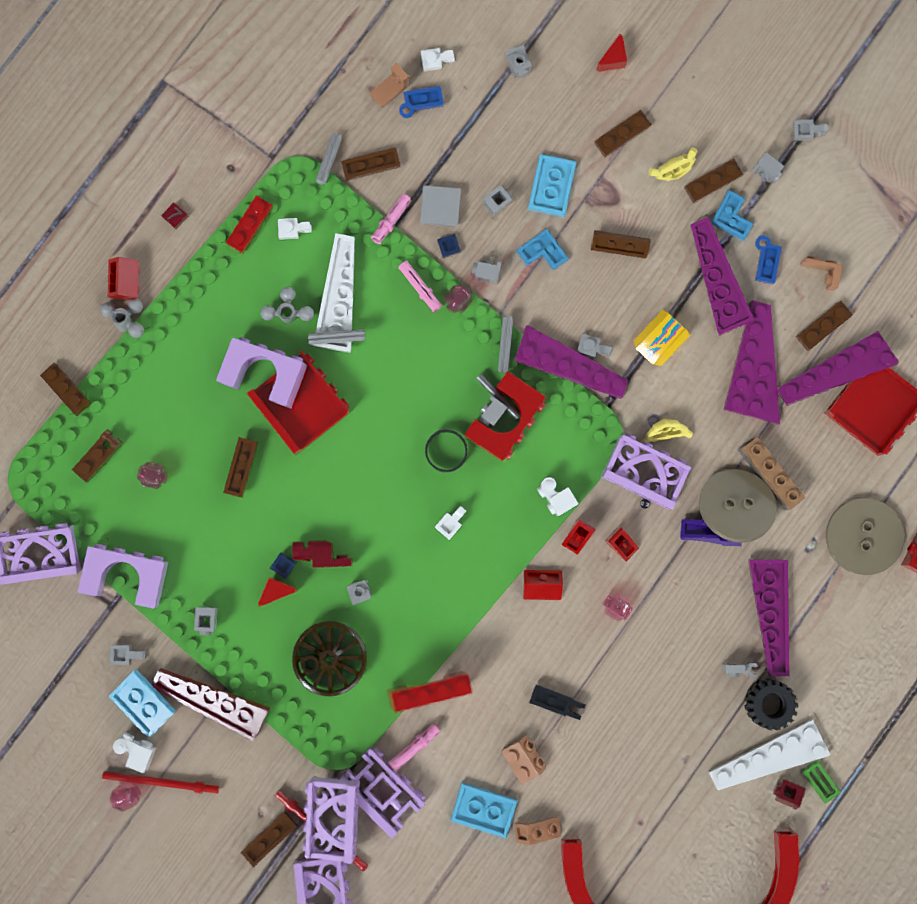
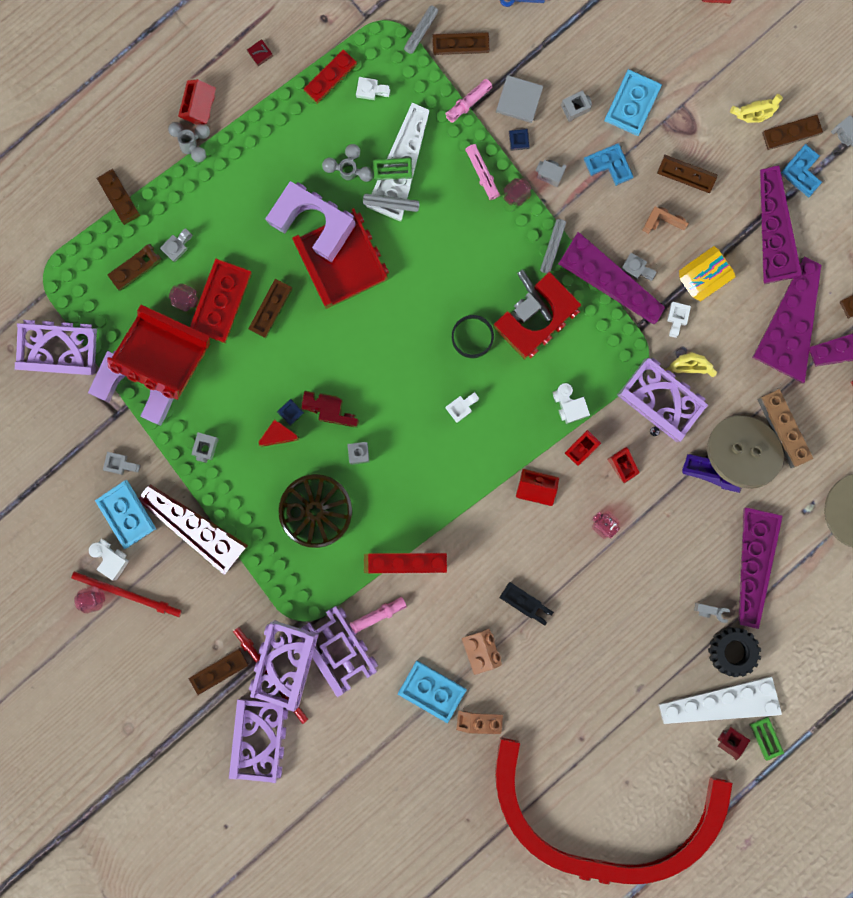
camera: 20 degrees right, 0 degrees up
(133, 426) = (174, 247): none -> light grey plate
(140, 537) = (159, 353): none -> red panel
(189, 470) = (220, 300): none -> red plate
(333, 310) = (392, 169): none -> bright green tile
(597, 298) = (662, 213): none -> nougat bracket
(622, 133) = (713, 67): reddish brown plate -> none
(642, 385) = (678, 316): none -> white plate
(767, 261) = (828, 221): blue hinge -> none

